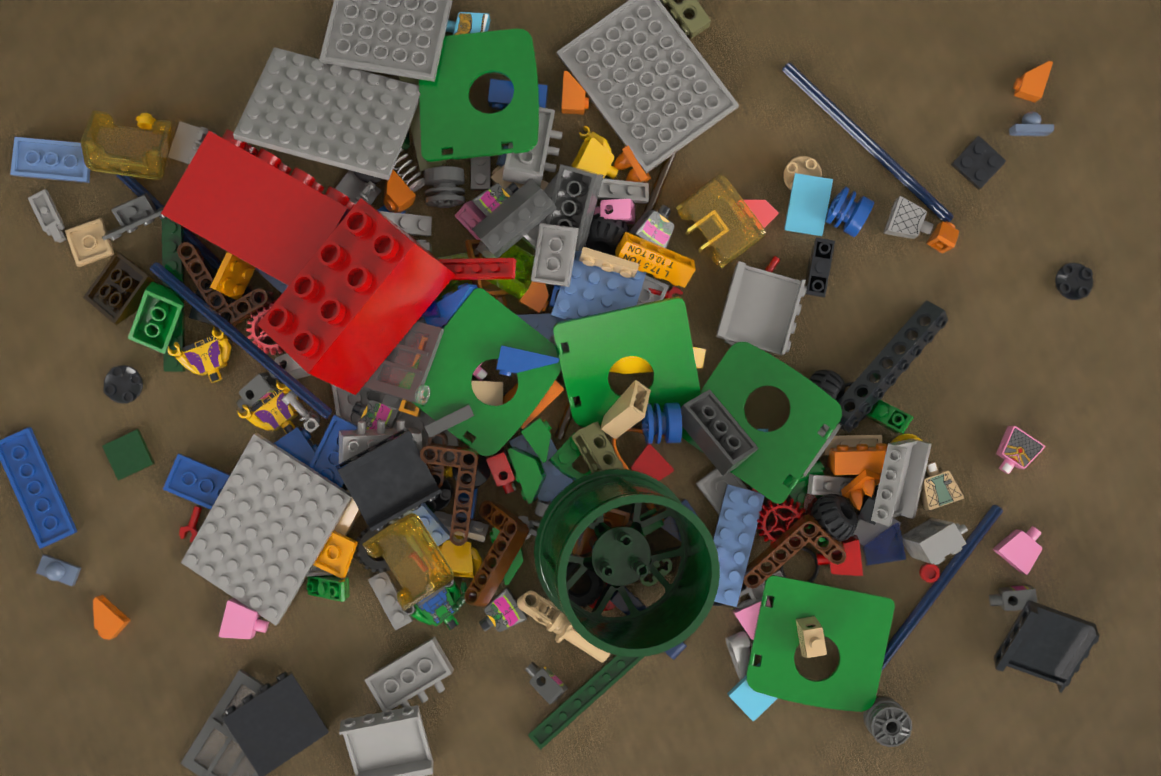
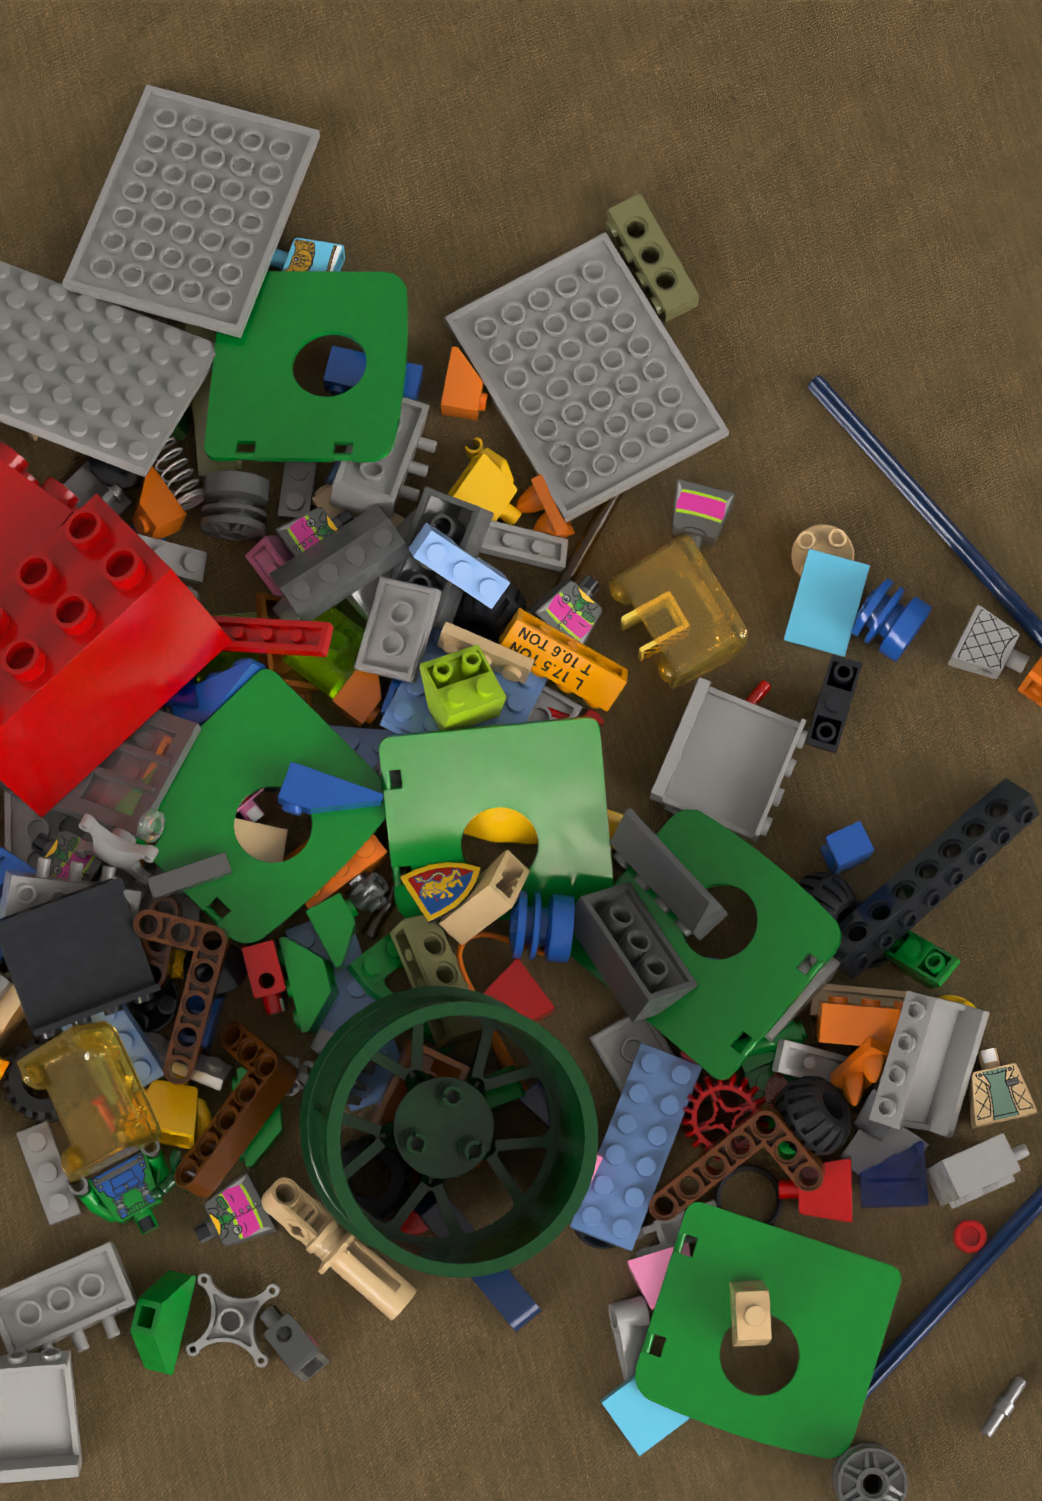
camera: 10 degrees right, 10 degrees down
(403, 411) = (116, 849): none -> light grey piece
(468, 677) = (161, 1320): none -> green slope
(509, 672) = (233, 1319): none -> light grey piece
(556, 413) = (368, 891): none -> dark grey gear
(581, 699) = (368, 1368): dark green plate -> none
(587, 213) = (458, 566): none -> light blue arch
(598, 288) = (461, 689): none -> lime slope
(599, 408) = (440, 887): none -> shield
(622, 210) = (521, 571): bright pink torso -> none
(662, 571) = (500, 1189): bright green beam -> none
(725, 157) = (700, 512): none -> torso
(733, 386) = (667, 877): none -> dark grey slope
(762, 210) = (750, 604): coral slope -> none
(836, 354) = (847, 848): none -> blue panel
(958, 668) = (1003, 1407): none -> flat silver bar

